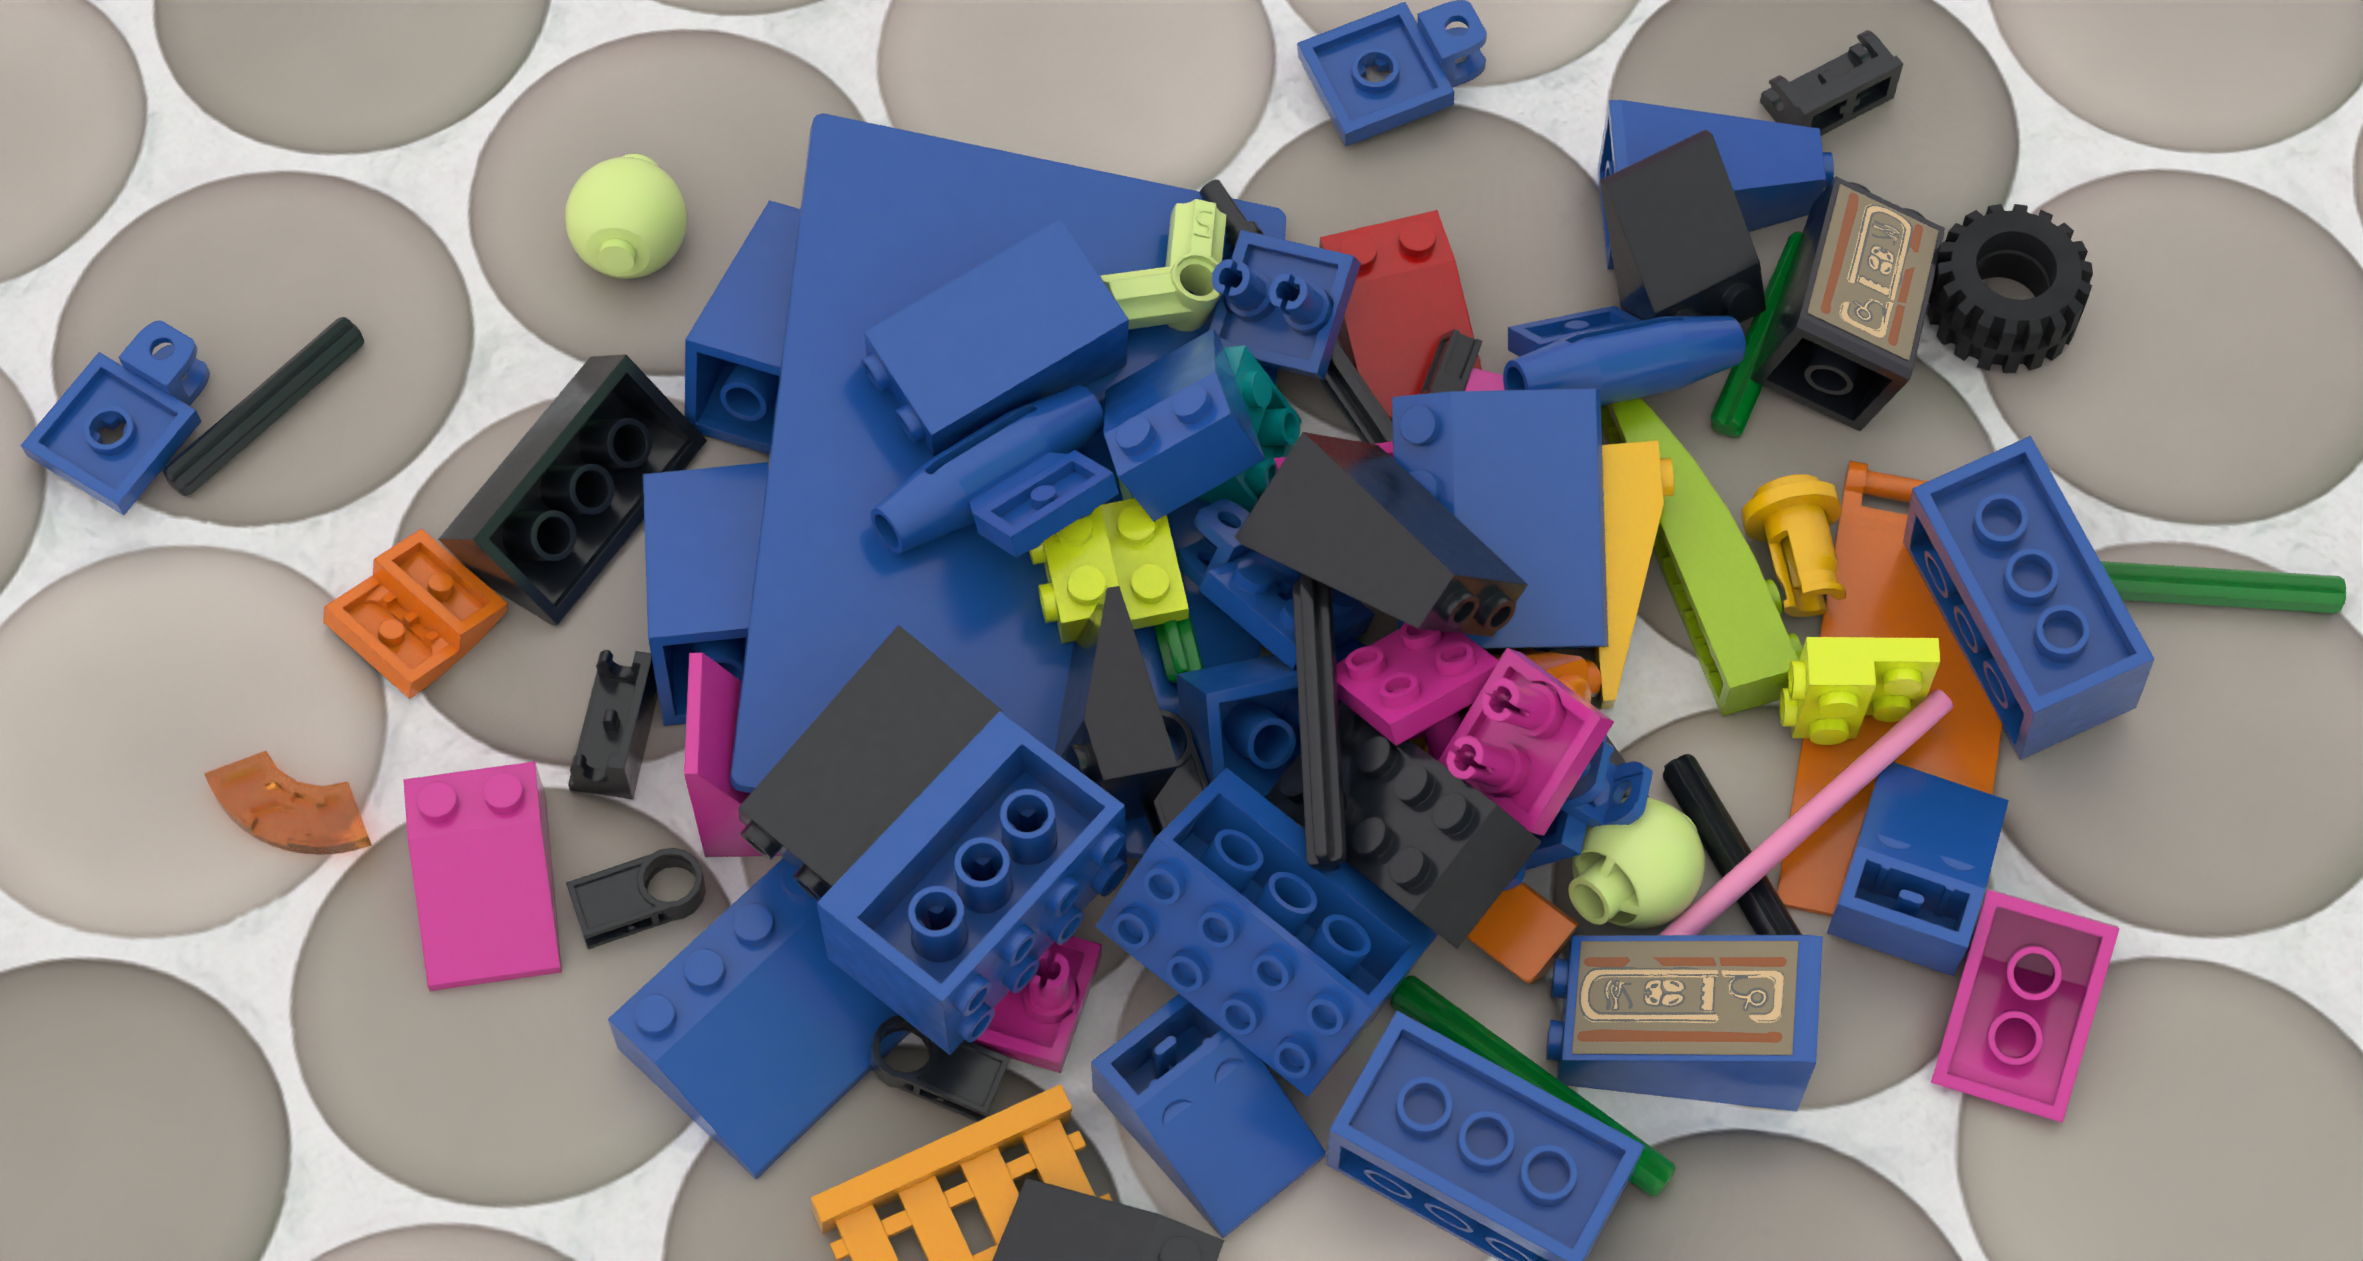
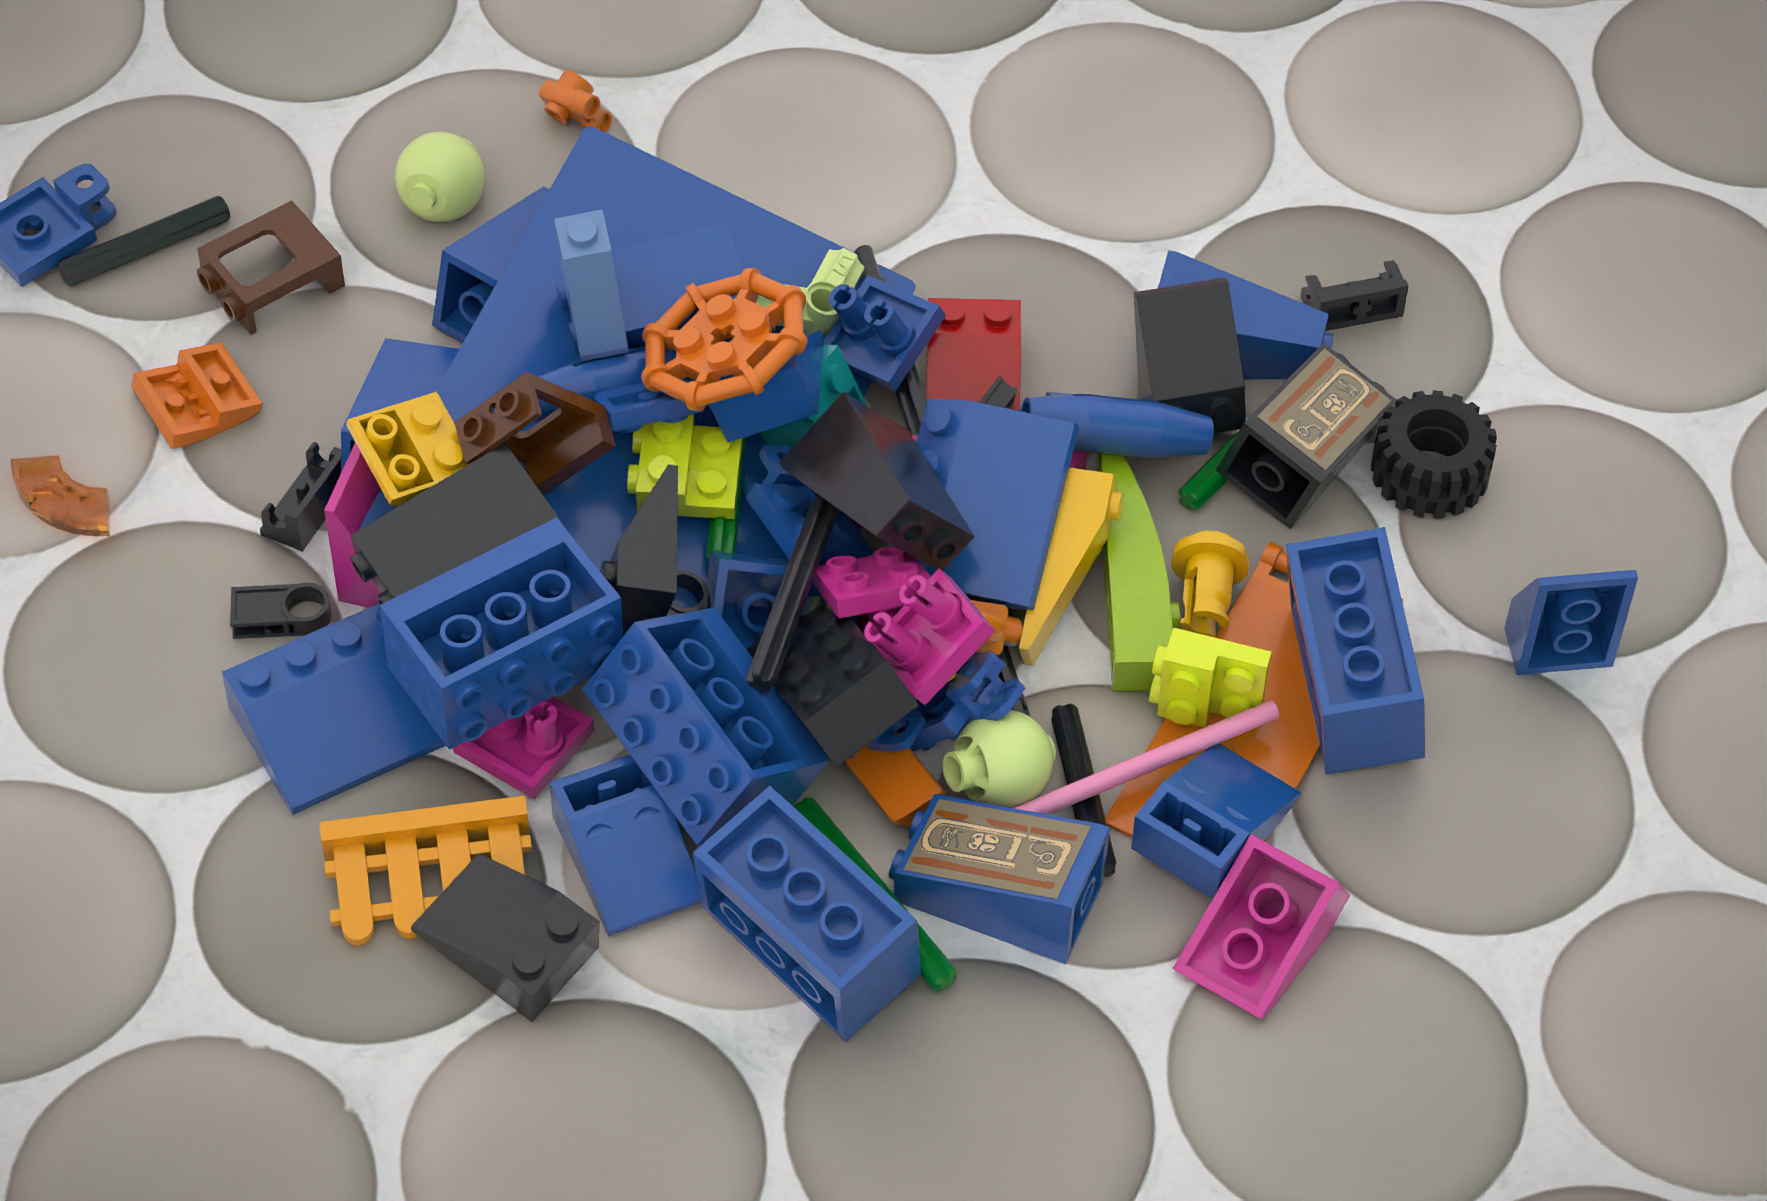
camera: 15 degrees right, 10 degrees down
(483, 875) = (176, 567): dark pink slope -> none
(493, 366) = (313, 260): none -> reddish brown window
(572, 488) = (333, 340): black slope -> none
(753, 59) = (573, 99): none -> orange plate
(774, 660) = (408, 446): none -> yellow slope
(920, 590) = (550, 449): none -> reddish brown window
(928, 366) = (591, 285): none -> medium blue slope
(957, 1081) = (456, 777): black piece -> none
(1104, 369) = (700, 346): none -> orange plate
(1415, 53) = (1048, 207): blue plate -> none
(2227, 587) = (1521, 694): green axle -> none
(2255, 482) = (1569, 621): none -> blue slope

